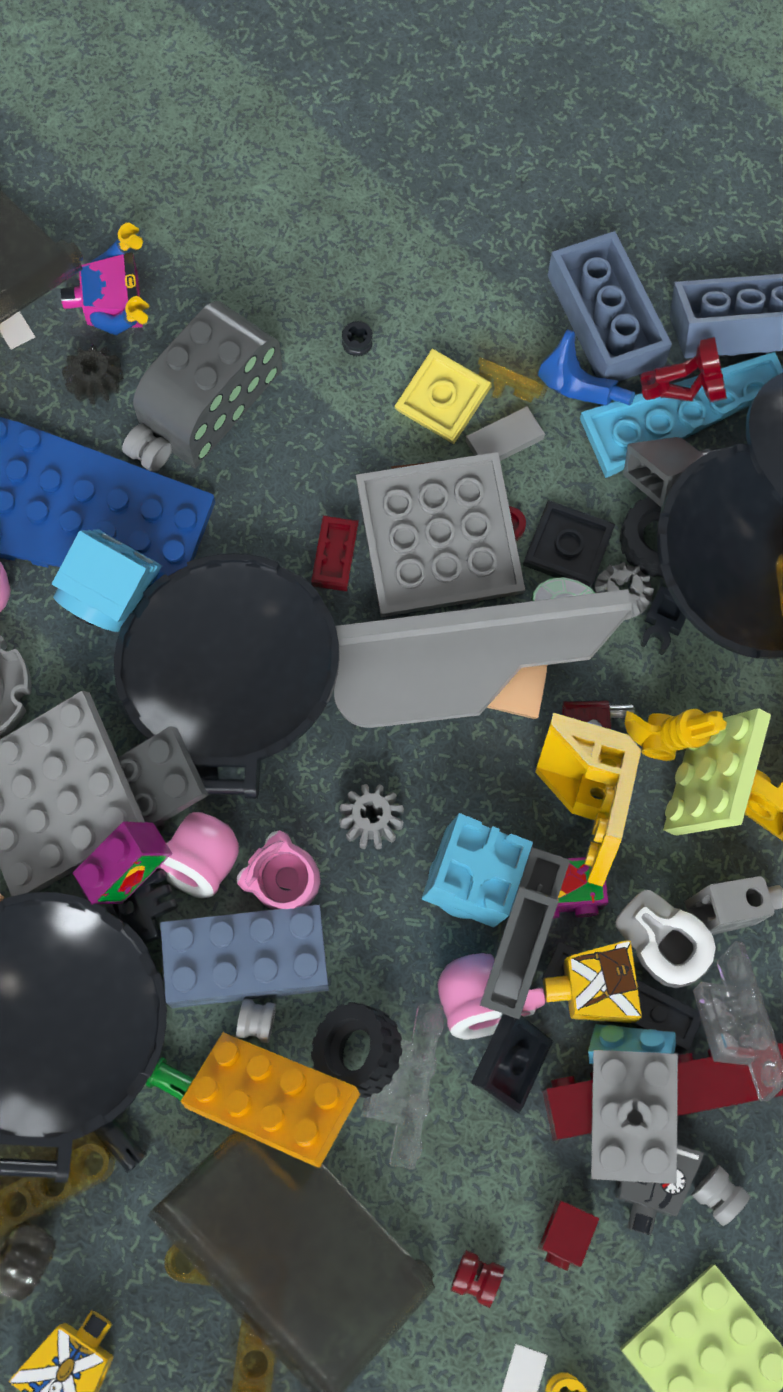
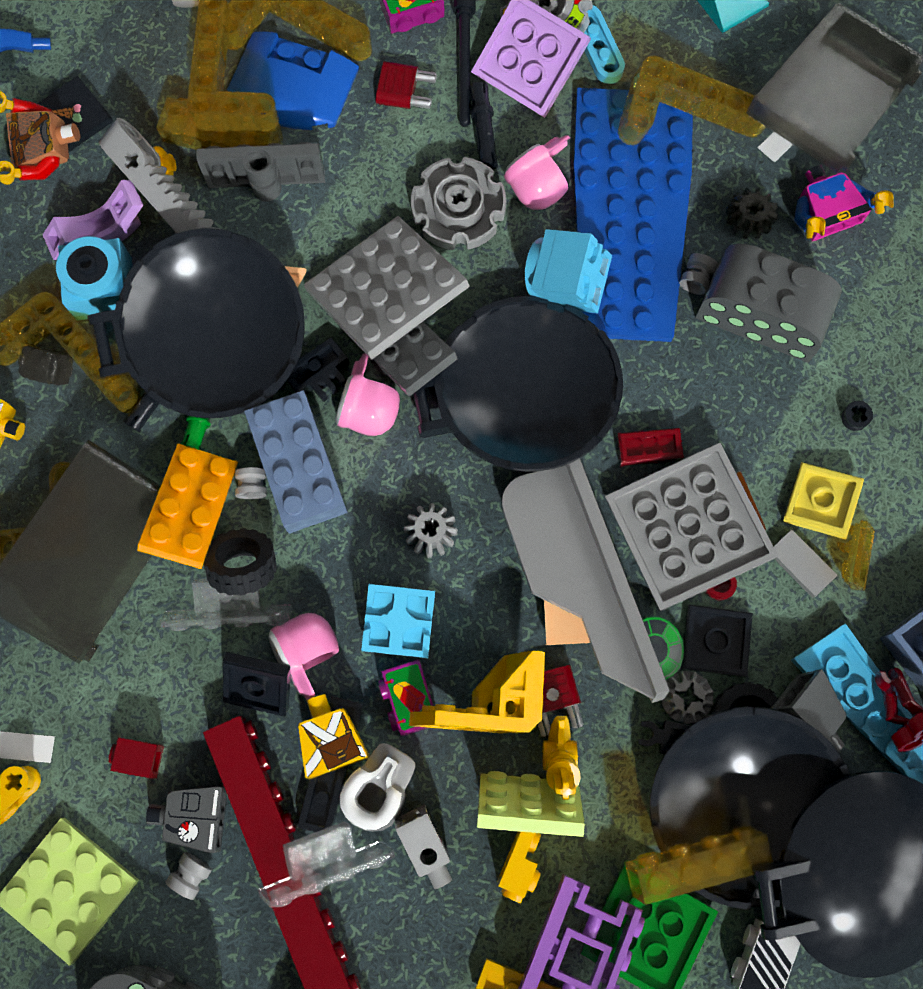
camera: 80 degrees right, 5 degrees up
(122, 862) = (339, 347): magenta brick -> none
(284, 866) = (370, 464): bright pink piece -> none
(487, 1280) = (92, 702): dark red wheel -> none
(525, 933) = (355, 668): dark grey slope -> none
(563, 374) = (877, 601): blue animal -> none
(630, 1039) = (287, 780): medium azure plate -> none
(634, 1116) = (228, 789): light grey plate -> none

